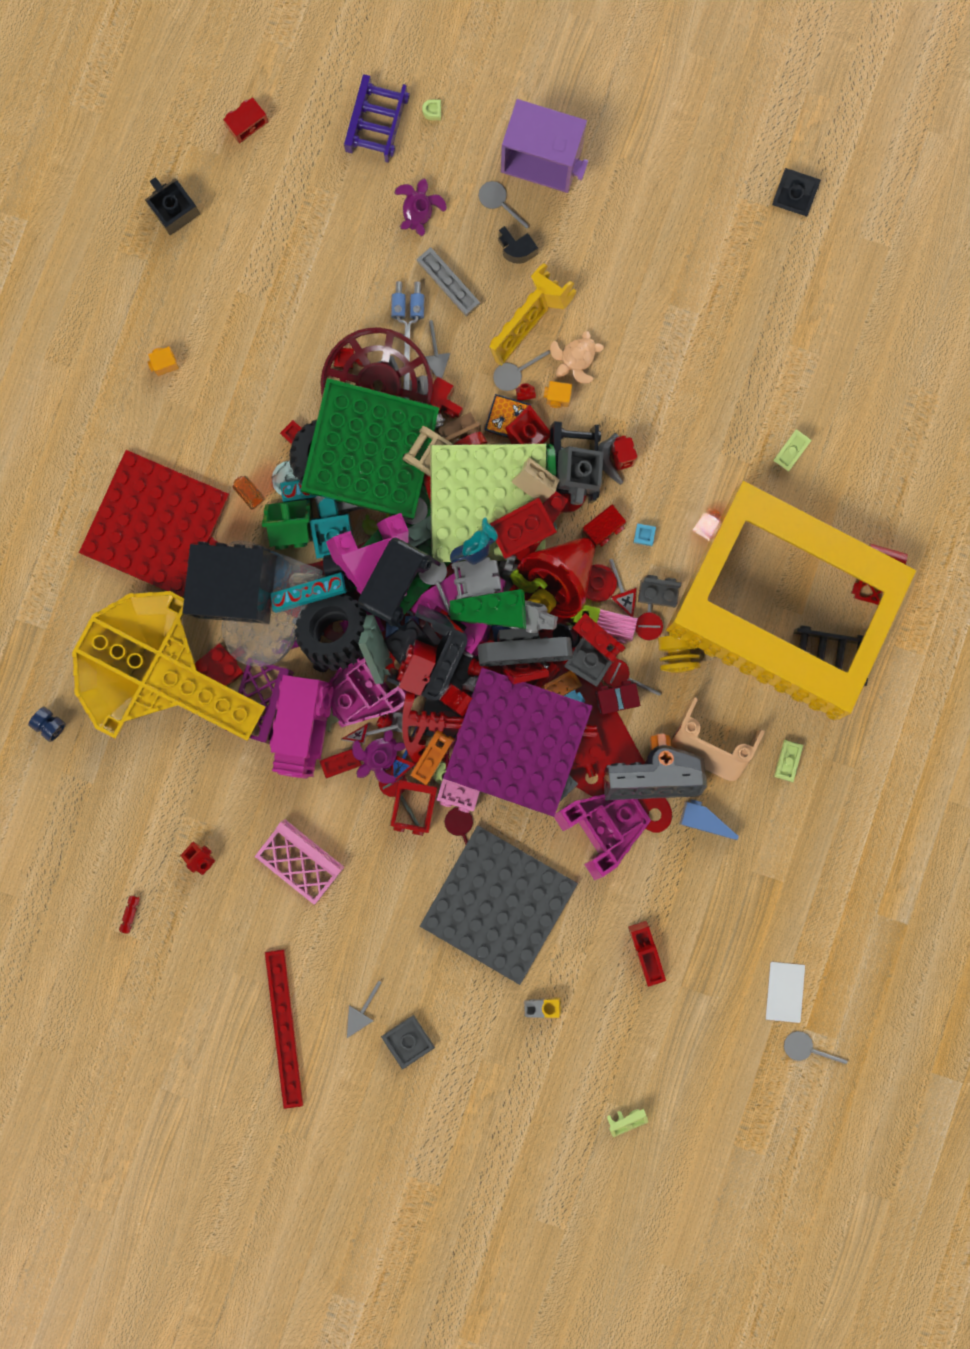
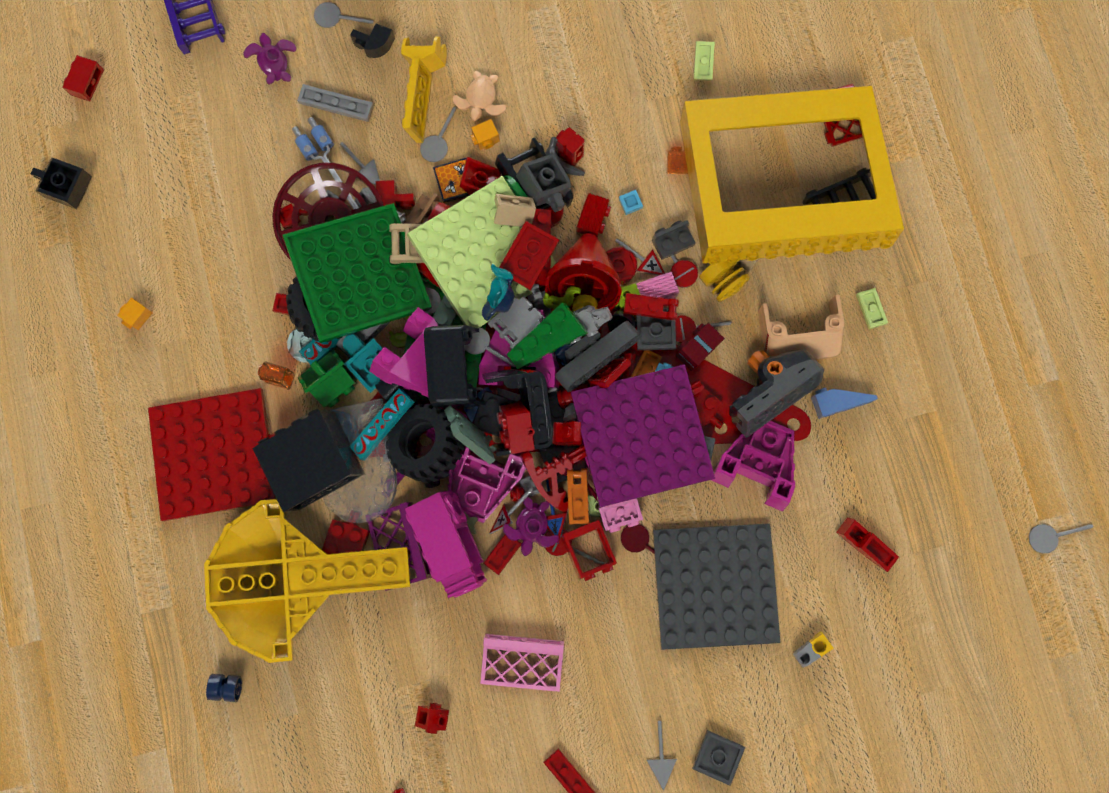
camera: 30 degrees left, 5 degrees down
(525, 392) = (457, 150): red plate -> none
(633, 1120) = (955, 693): yellowish green plate -> none
(785, 992) = (1001, 501): white sticker -> none

